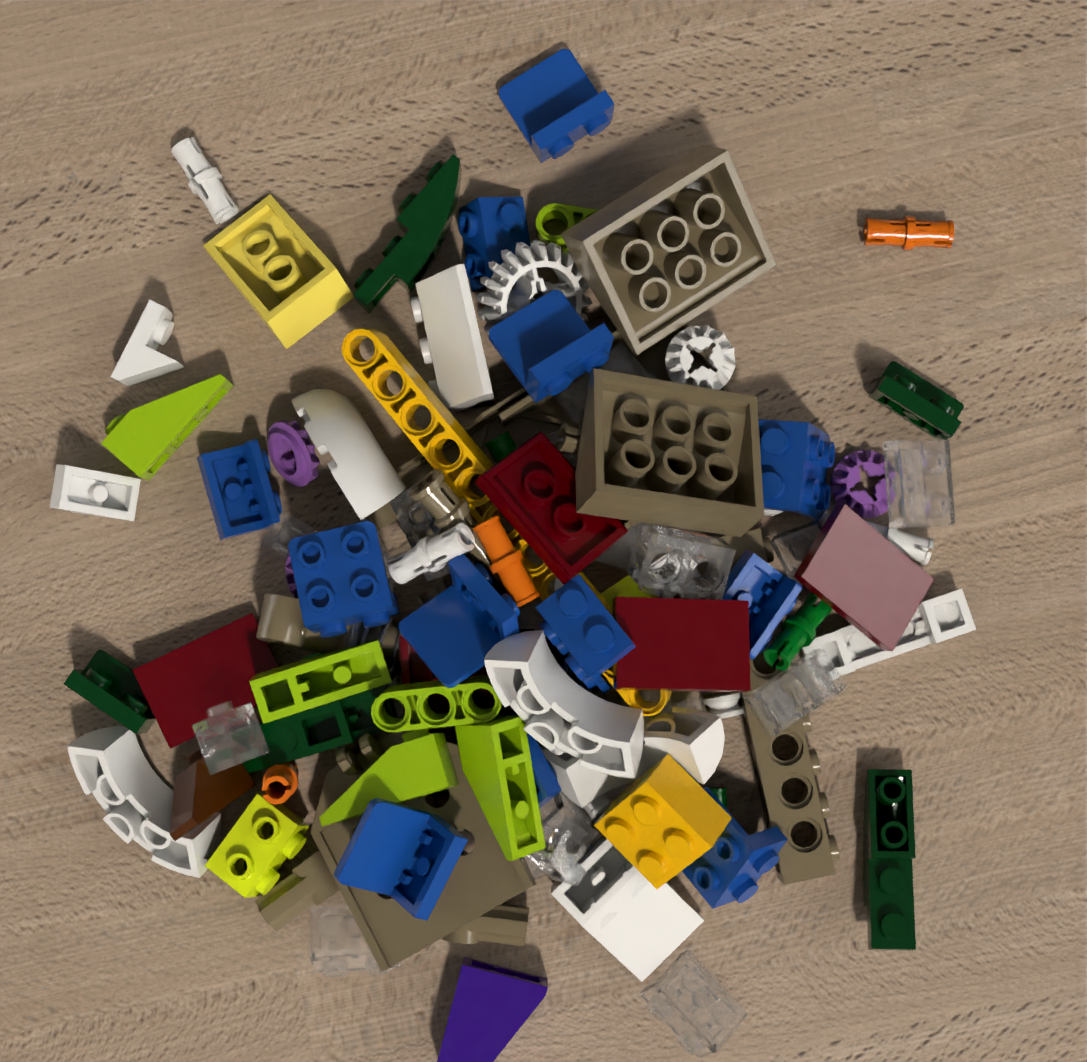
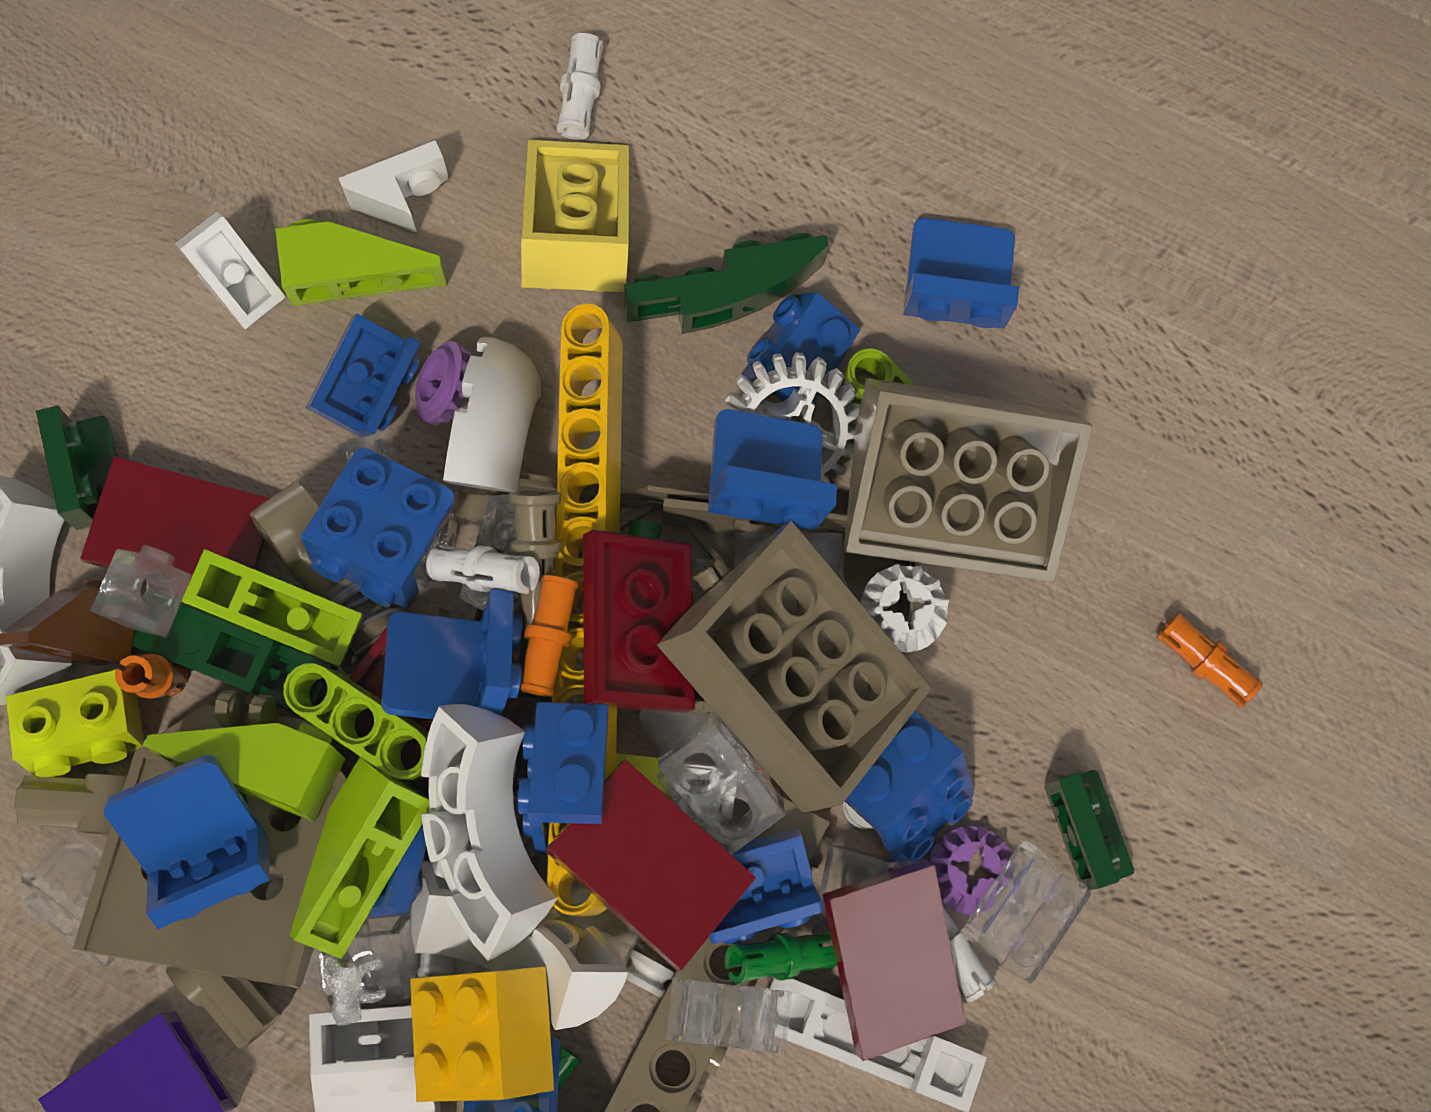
camera: 30 degrees right, 10 degrees down
(452, 340) = (683, 402): white slope -> none

